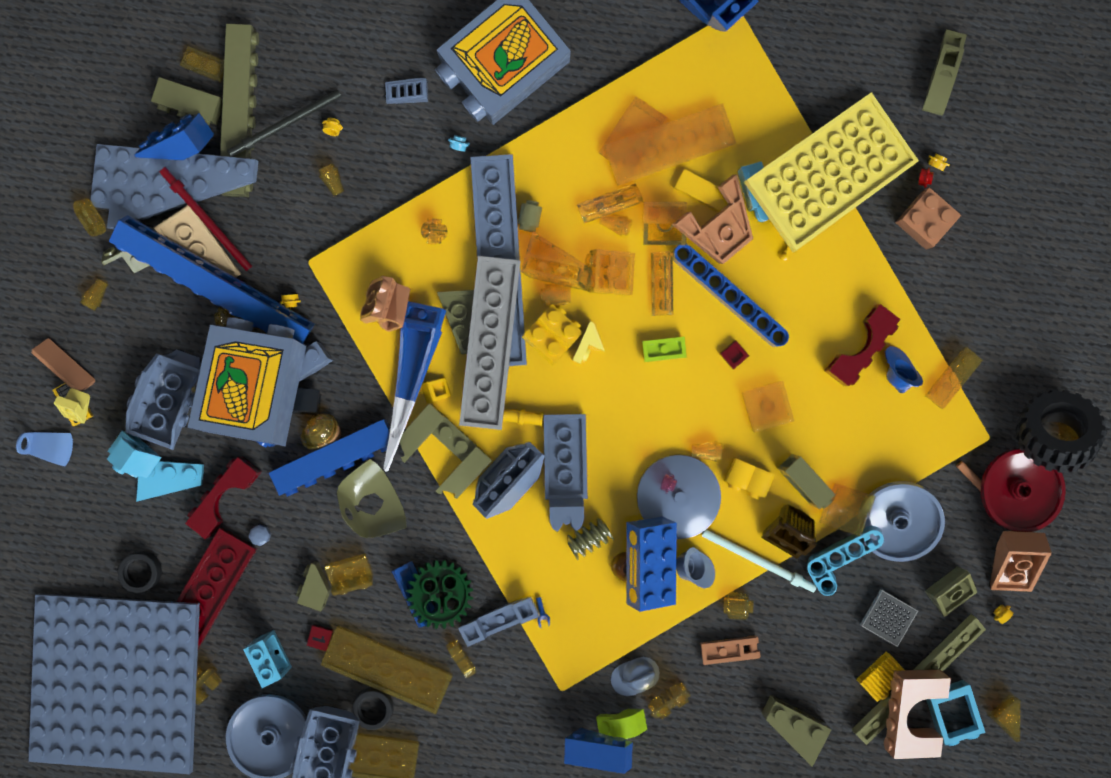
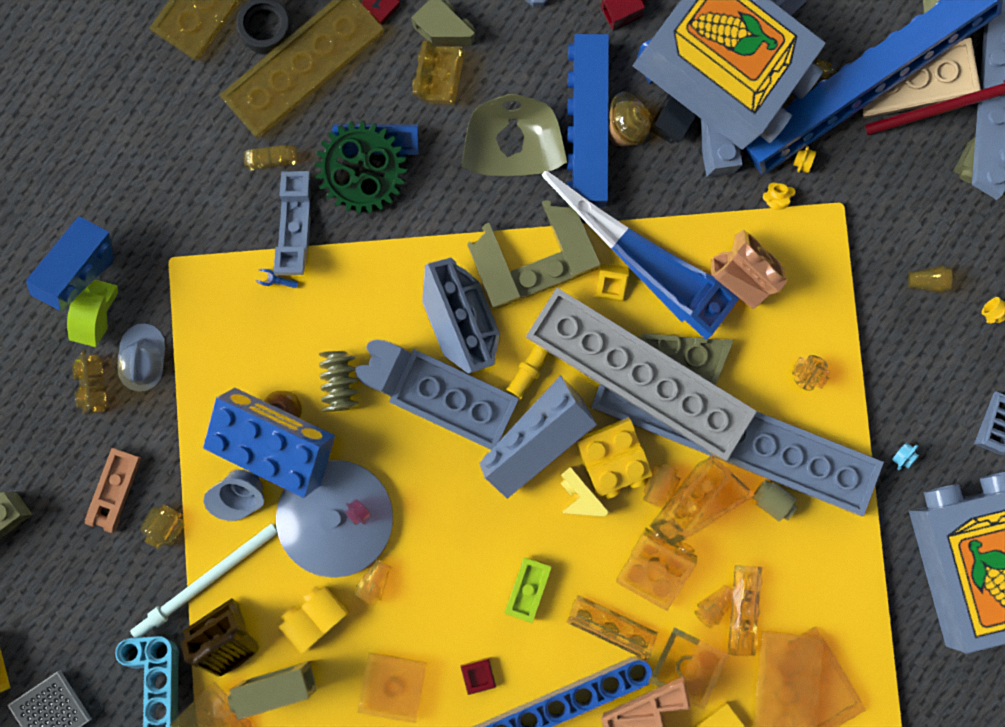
camera: 115 degrees right, 5 degrees down
(323, 306) = (778, 195): none -> yellow plate
(563, 389) = (538, 438): none -> sand blue wedge

